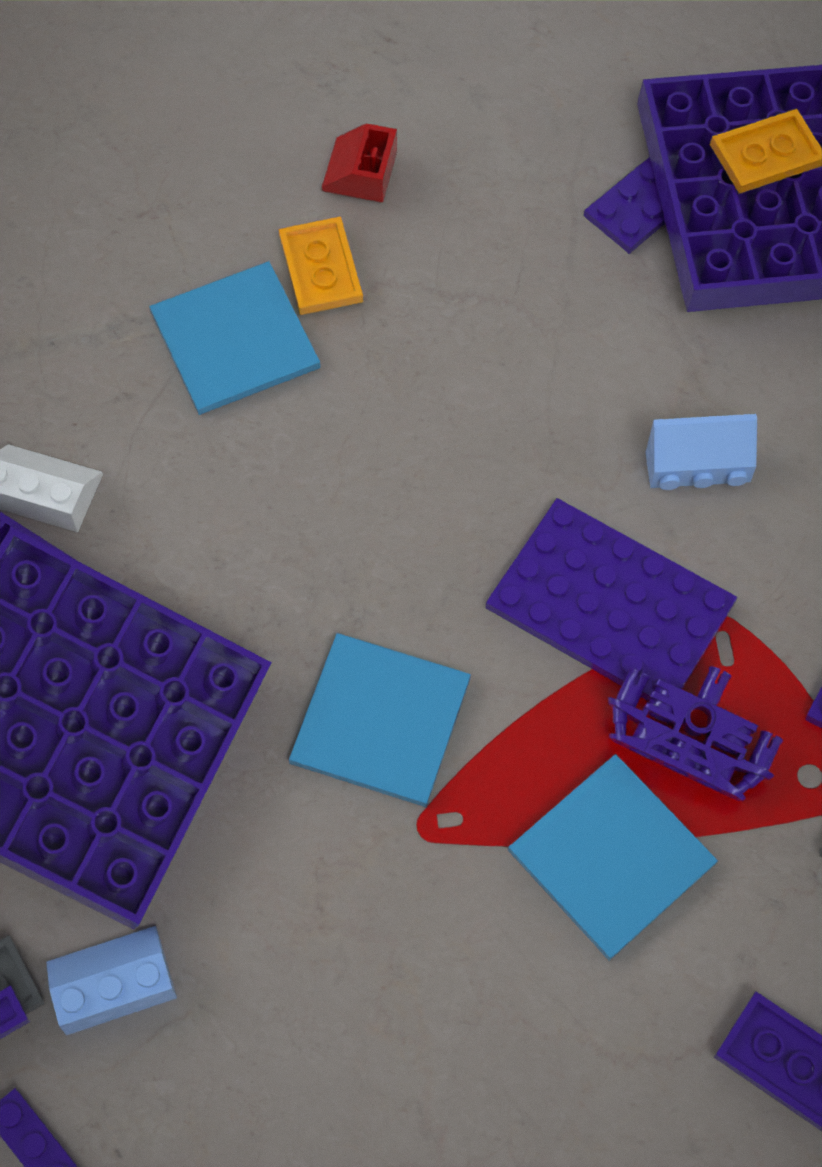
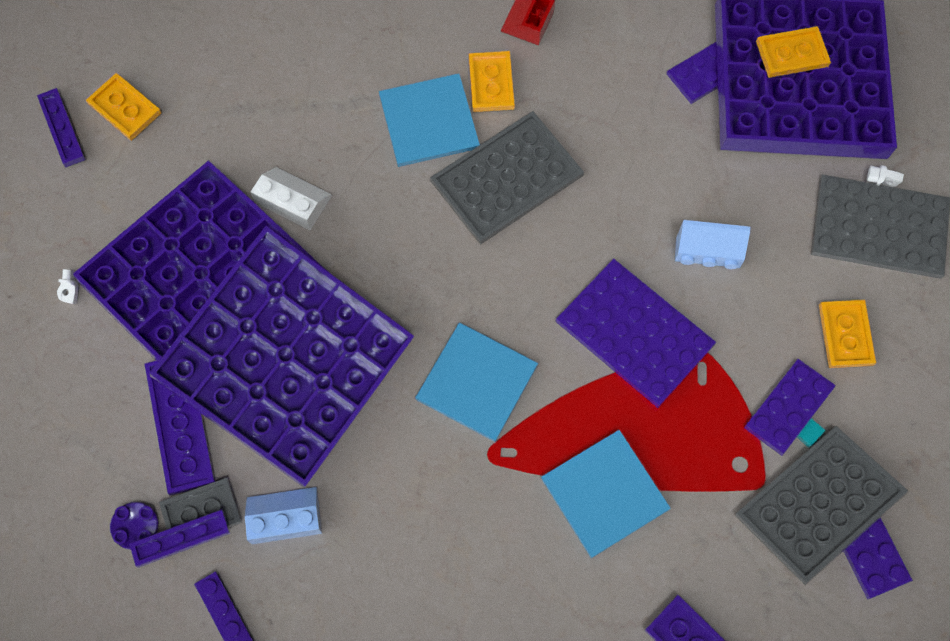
camera: 10 degrees right, 5 degrees up
(370, 403) = (506, 177): none -> dark grey plate
(686, 754) = (663, 438): dark purple piece -> none

